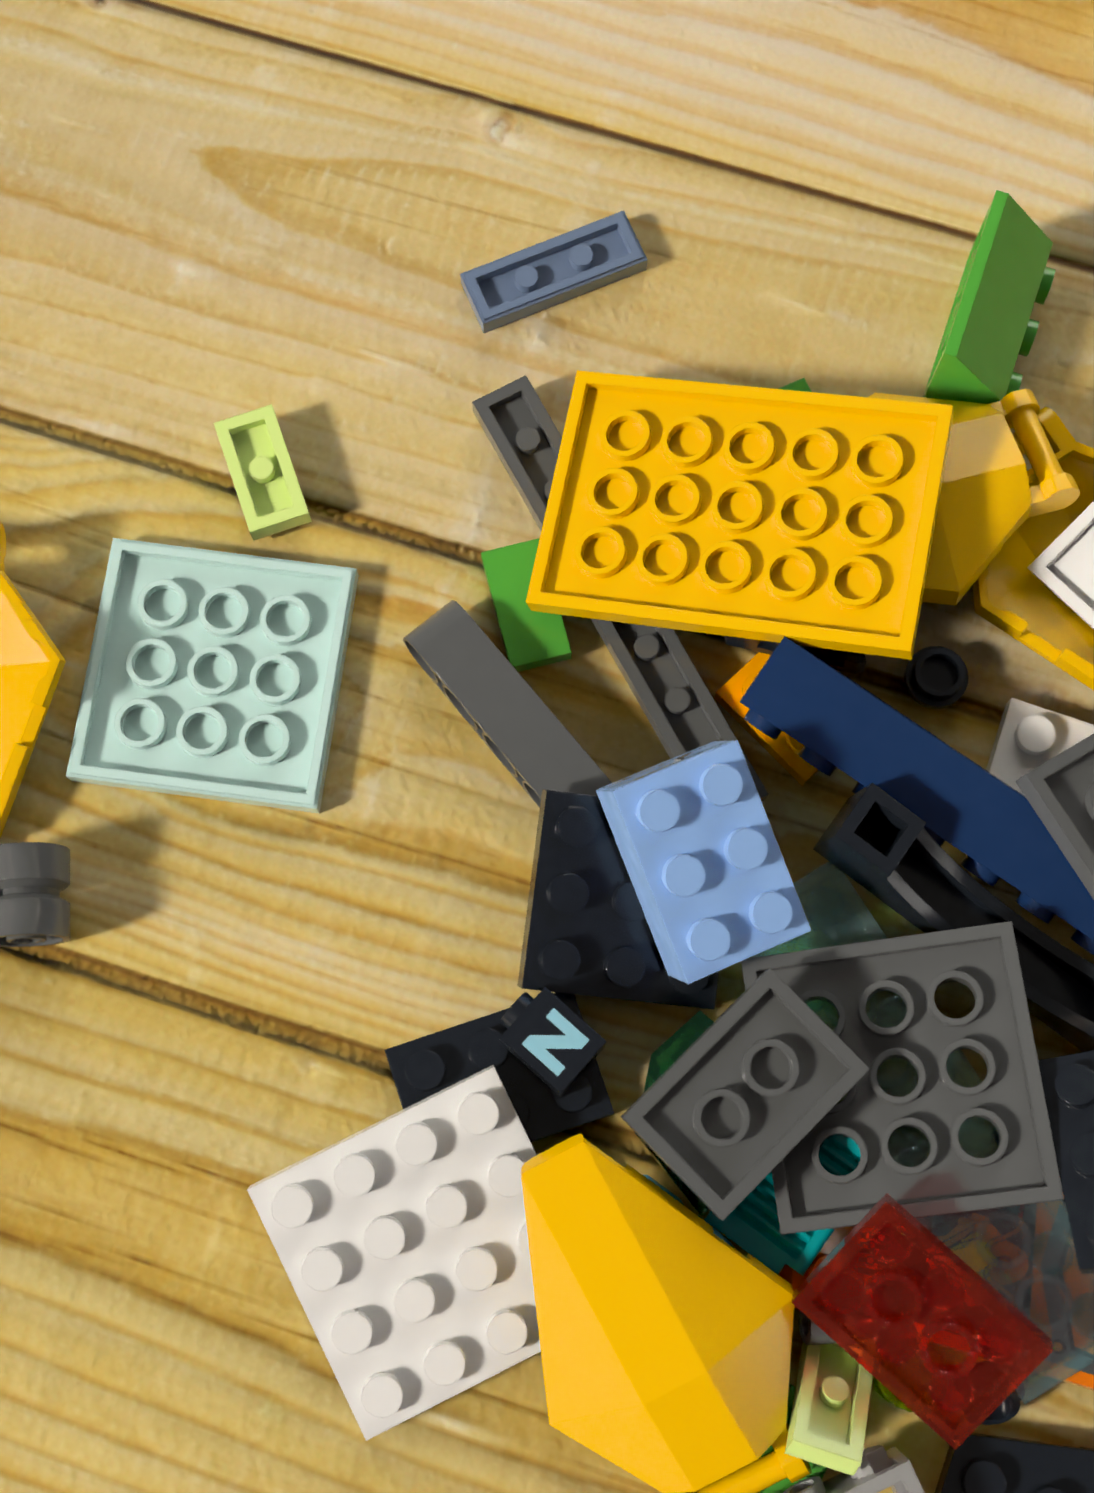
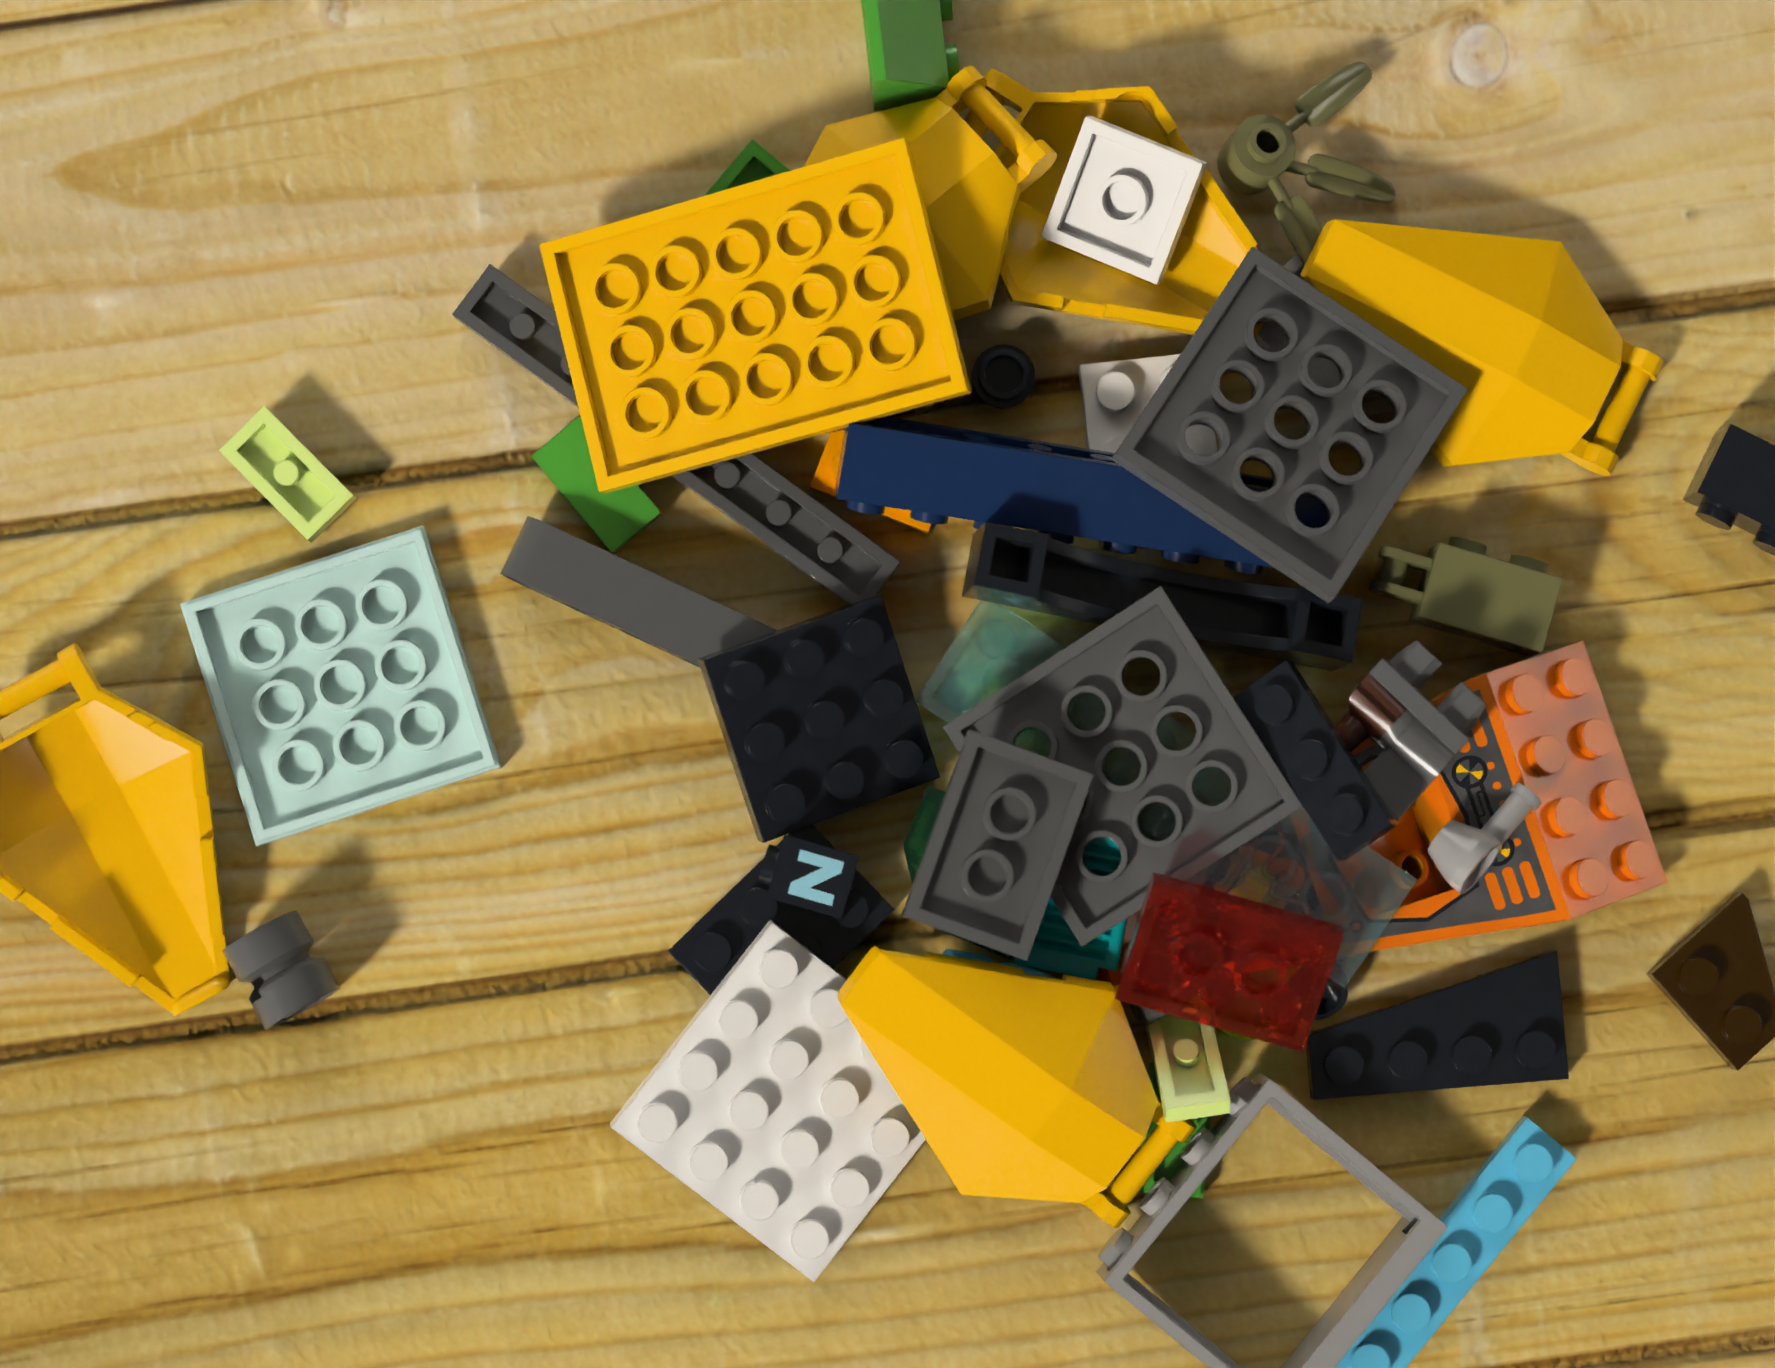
camera: 30 degrees left, 10 degrees up
(553, 271) = (463, 139): sand blue tile -> none
(703, 860) = (869, 658): light blue brick -> none

